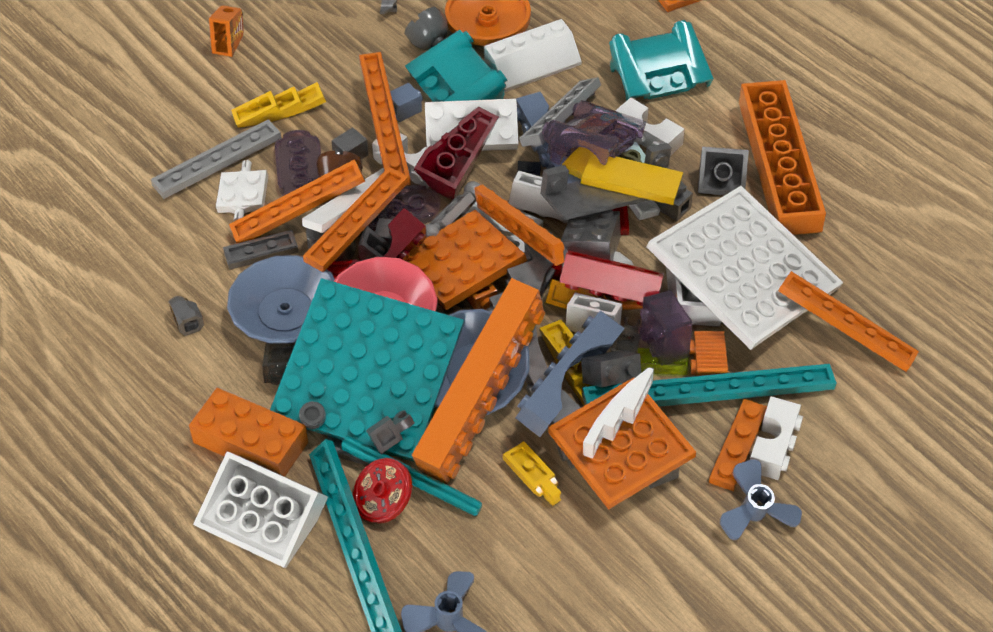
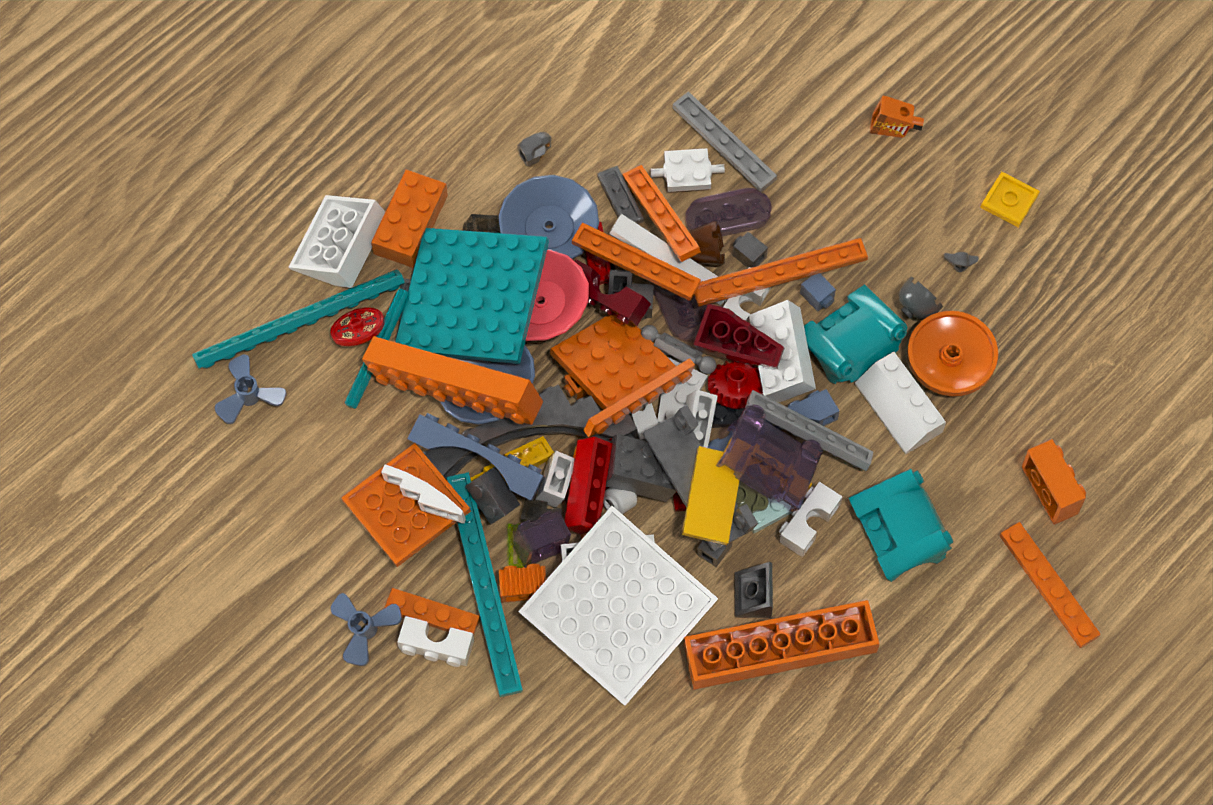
camera: 85 degrees right, 15 degrees up
(279, 106) = (801, 183): yellow slope -> none
(312, 415) = (420, 259): dark grey tile -> none
(387, 432) = (404, 320): flat silver plate -> none
(497, 169) = (734, 383): none -> red gear
(533, 472) = (386, 444): yellow hinge -> none
(848, 321) = (566, 703): orange plate -> none

